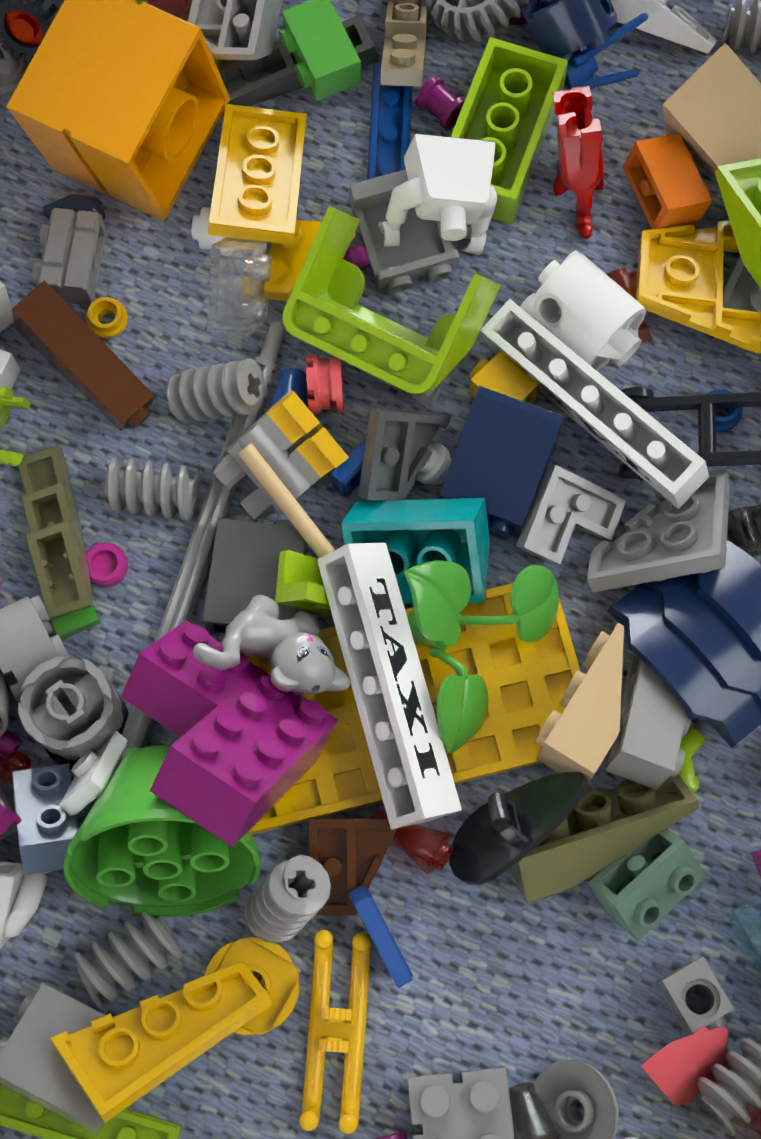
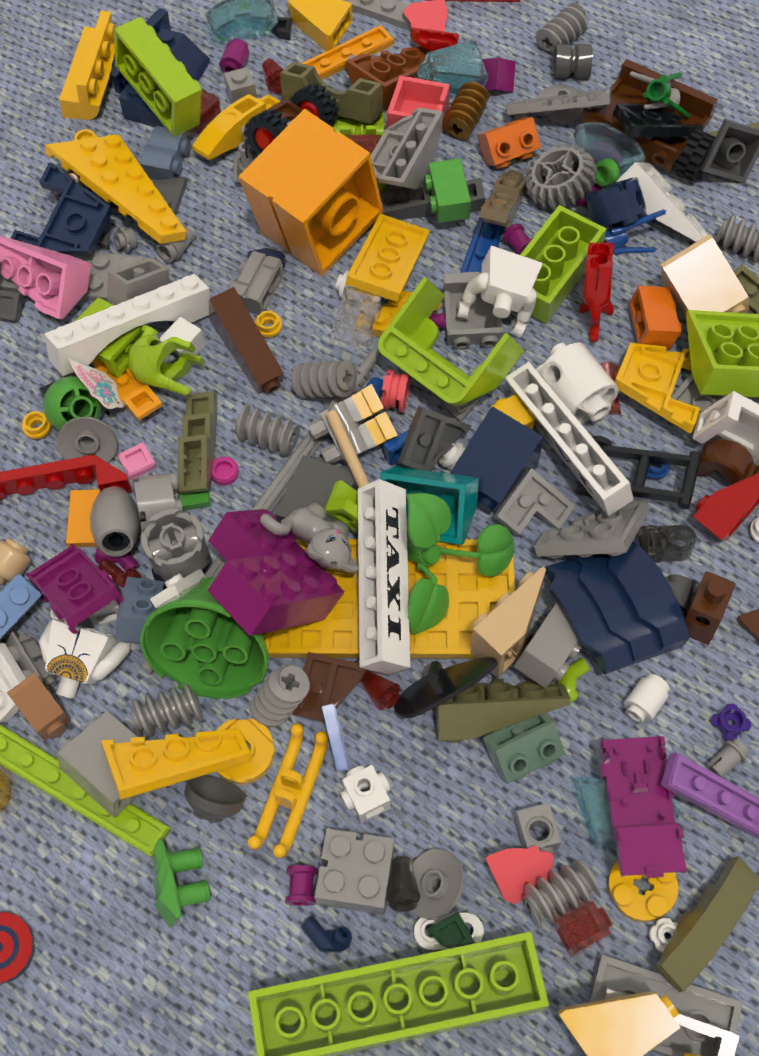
camera: 15 degrees right, 10 degrees down
(238, 1061) = (213, 798): none -> dark grey piece
(464, 1009) = (367, 803): none -> white brick

